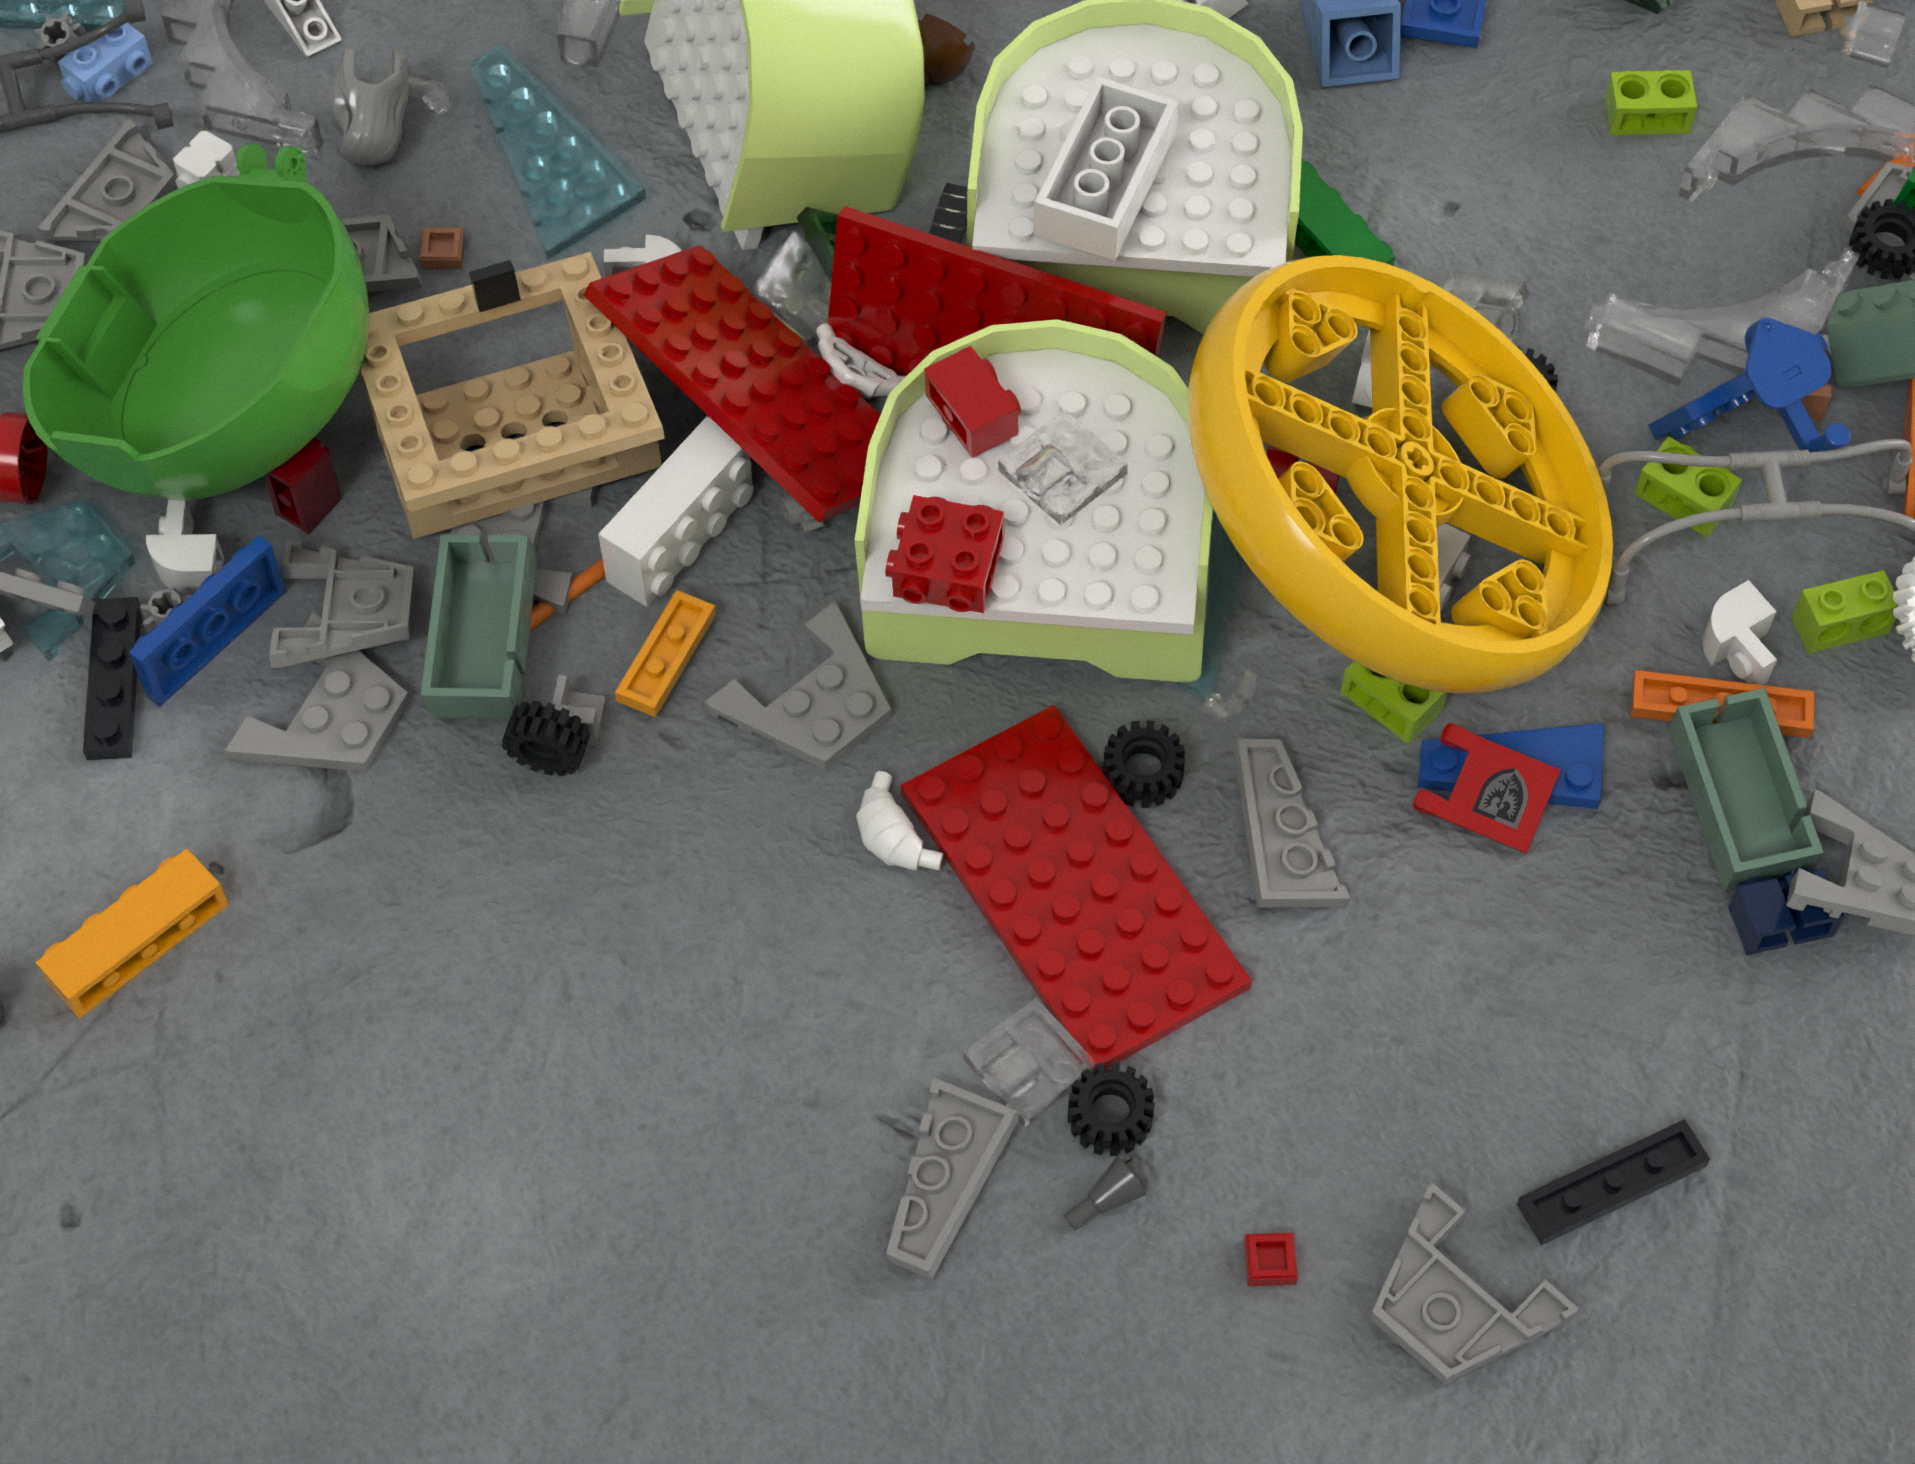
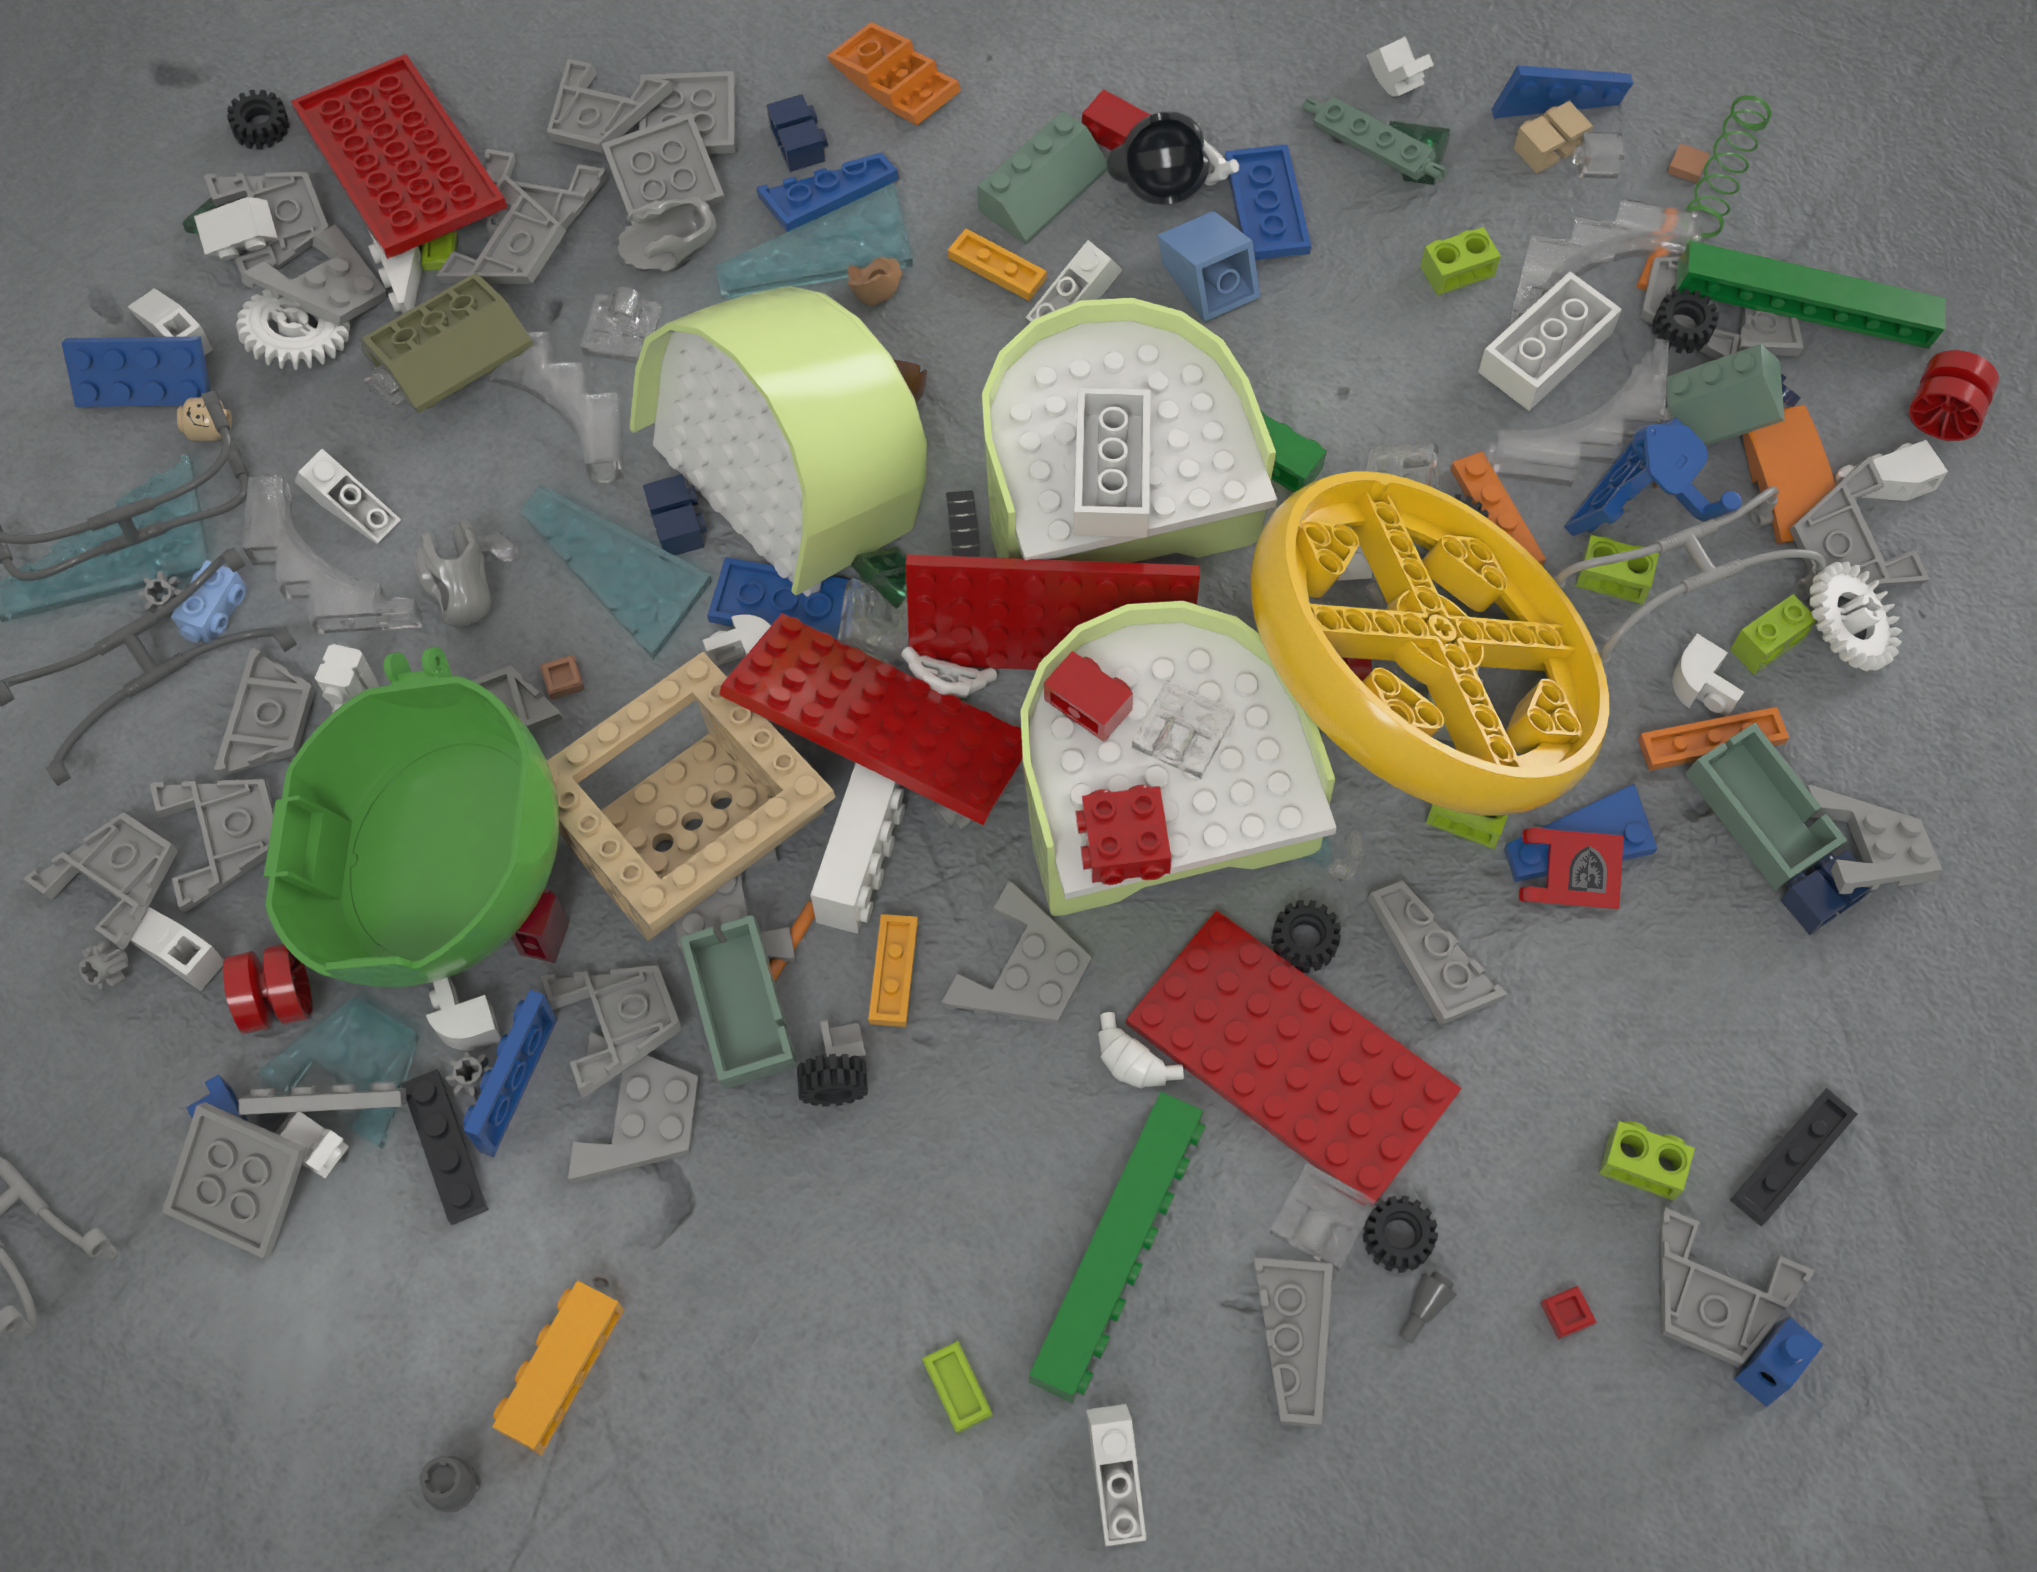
camera: 20 degrees left, 5 degrees up
(494, 285) = (643, 710): black tile -> none
(547, 1101) = (957, 1387): none -> lime tile
(632, 120) = (674, 515): none -> dark blue piece
(679, 1246) = (1116, 1474): none -> white slope
(695, 219) = (761, 592): none -> blue plate
(783, 1015) = (1115, 1248): none -> green brick
(1424, 1133) = (1645, 1170): none -> lime brick
(1497, 1386) = (1783, 1356): none -> blue torso
(1571, 355) = (1481, 482): none -> orange plate
(1716, 215) = (1549, 340): none -> white brick

